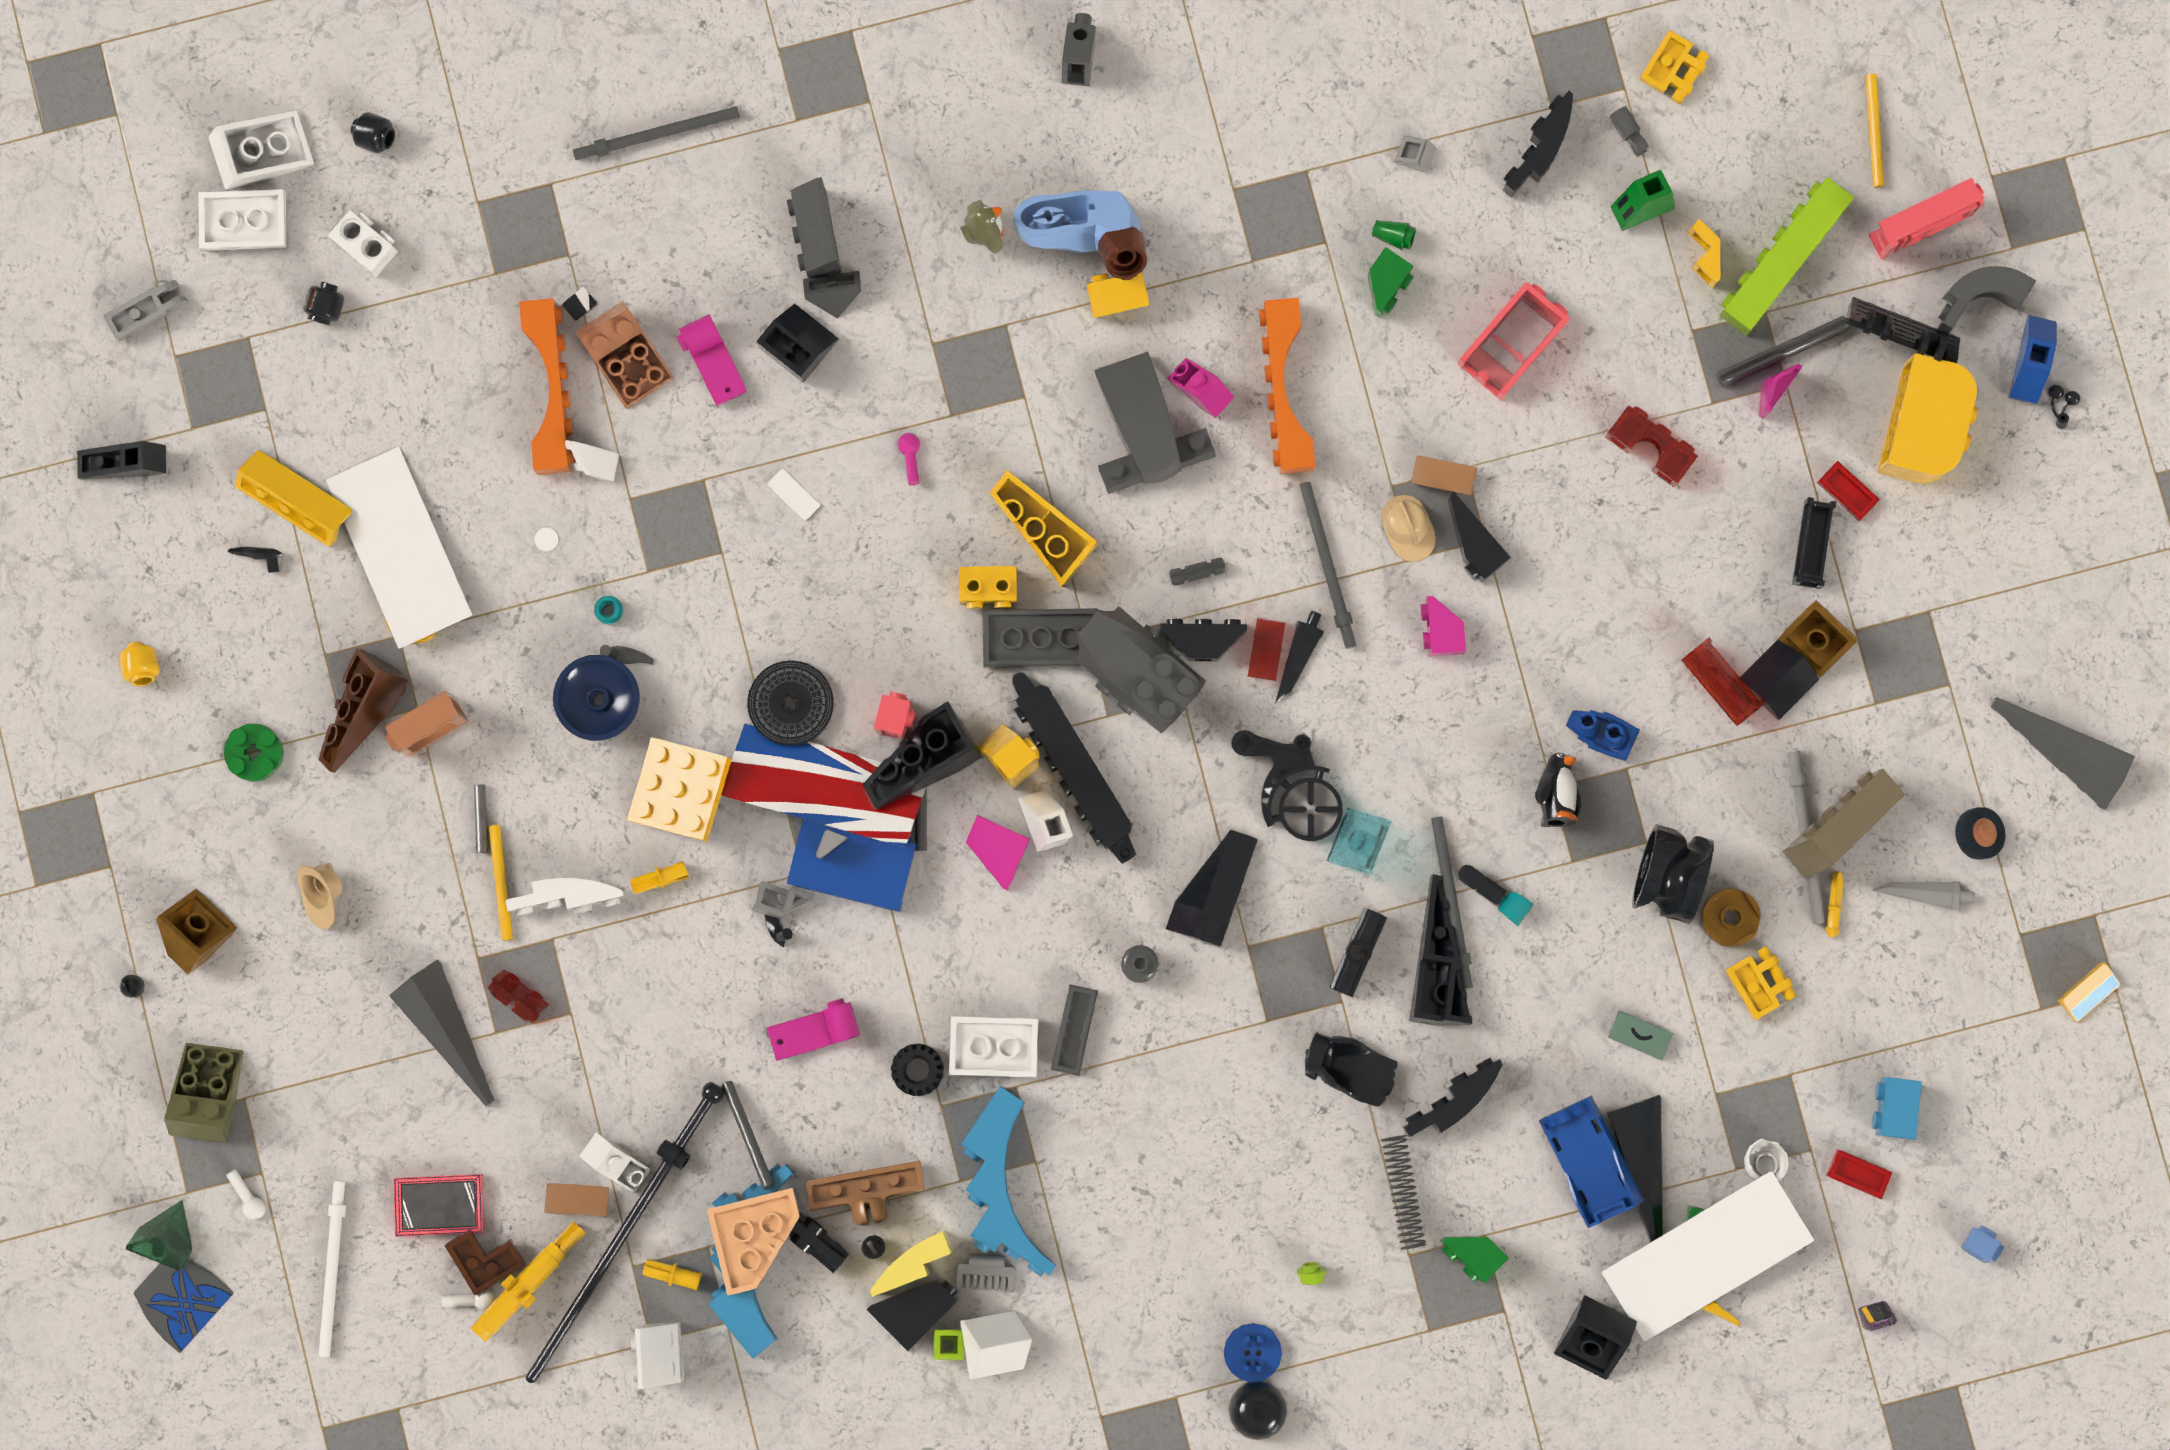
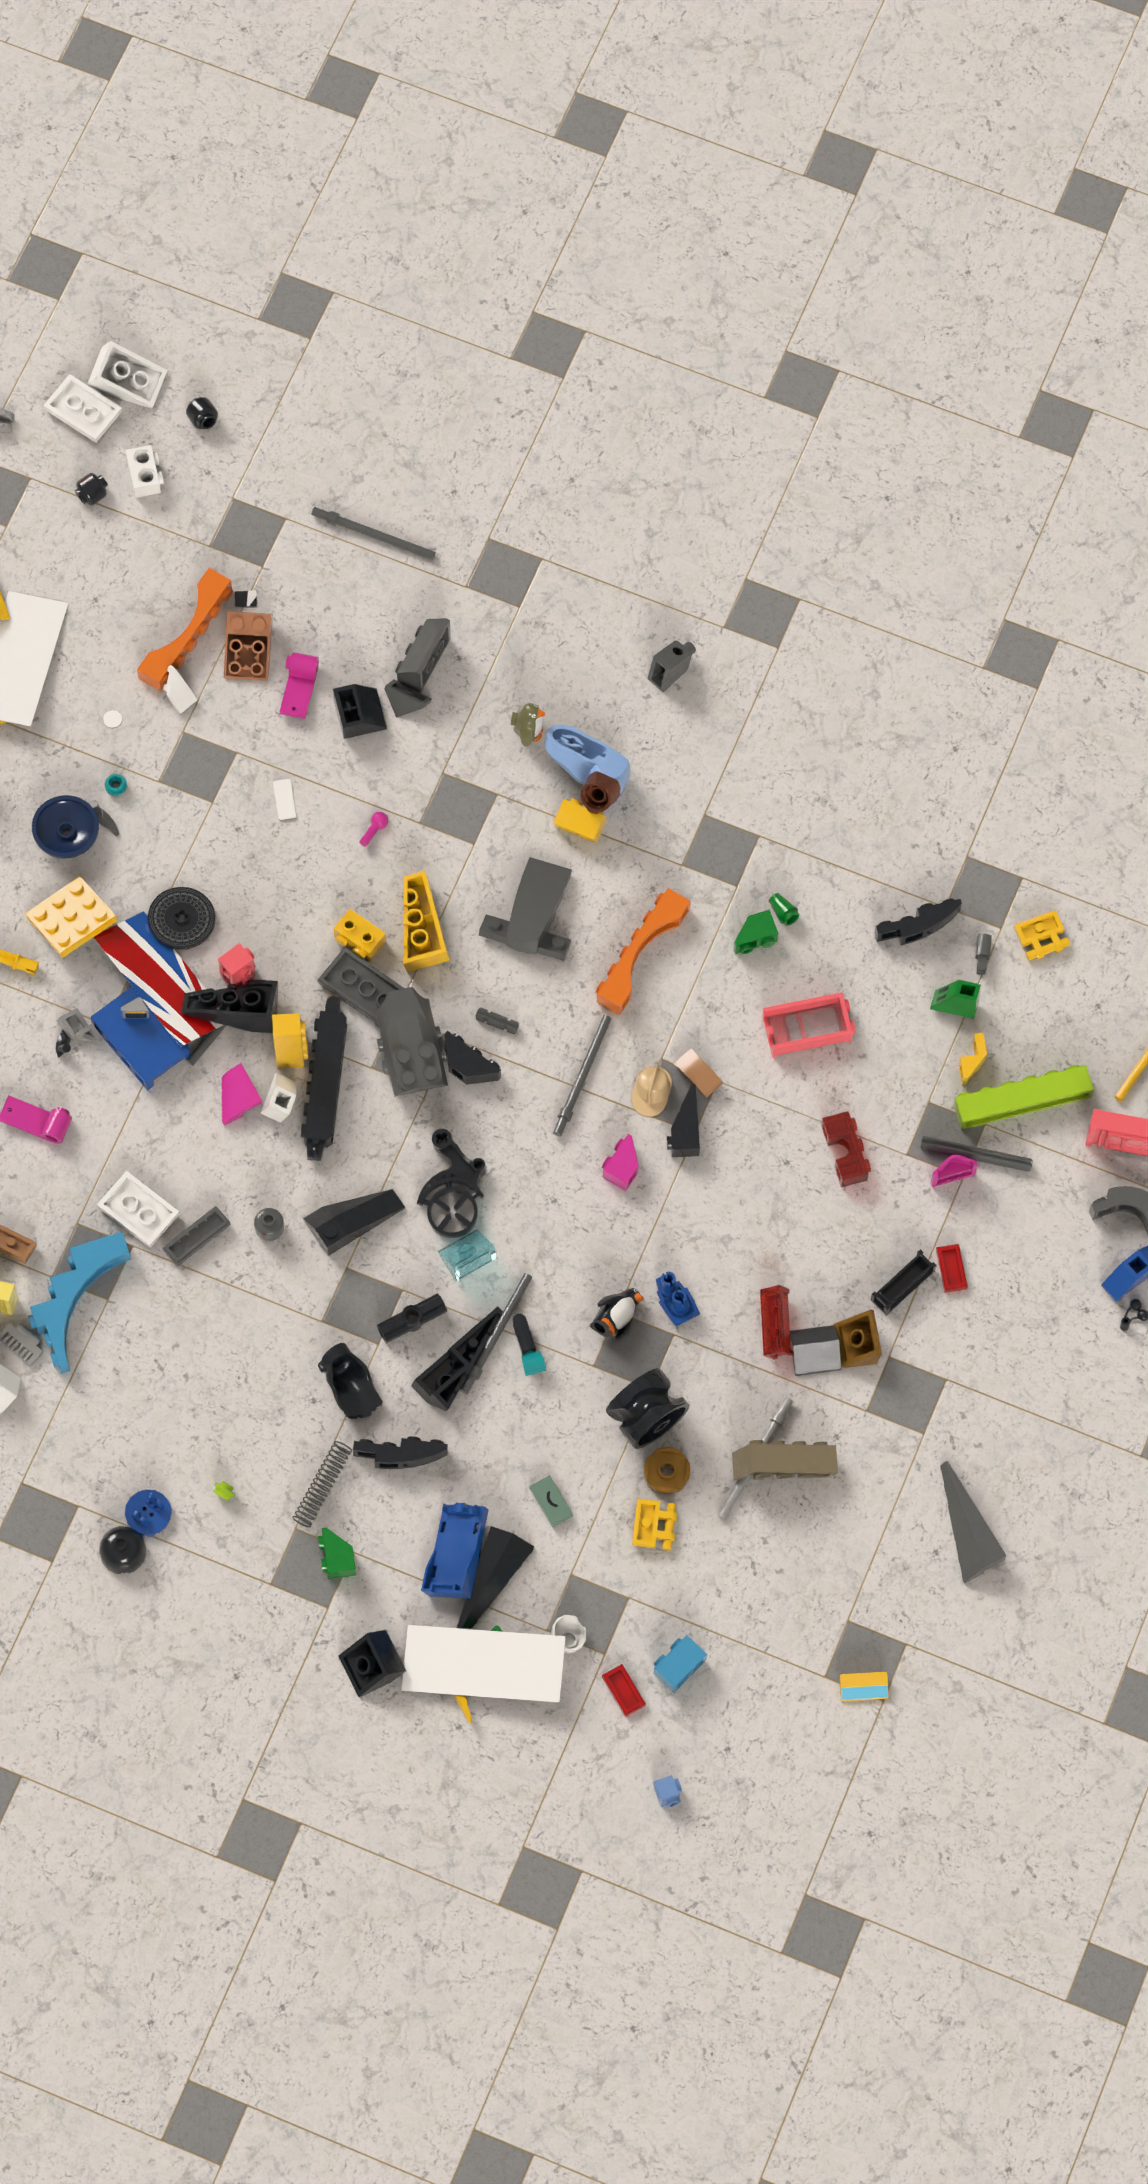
camera: 30 degrees right, 15 degrees down
(911, 1052) = (80, 1201): black tyre -> none
(1201, 387) = (587, 913): dark pink slope -> none
(1266, 649) = (502, 1098): clear red slope -> none
(1302, 646) = (529, 1111): black bar -> none
(1416, 153) = (836, 873): light grey slope -> none
(1836, 894) = (742, 1511): yellow piece -> none
(1876, 1316) = (563, 1786): slope -> none
(1903, 330) = (1062, 1192): black hinge -> none
(1929, 420) = (1033, 1257): yellow brick -> none
(1937, 893) = (813, 1555): light grey bar -> none
(1980, 833) = (869, 1534): black wheel -> none

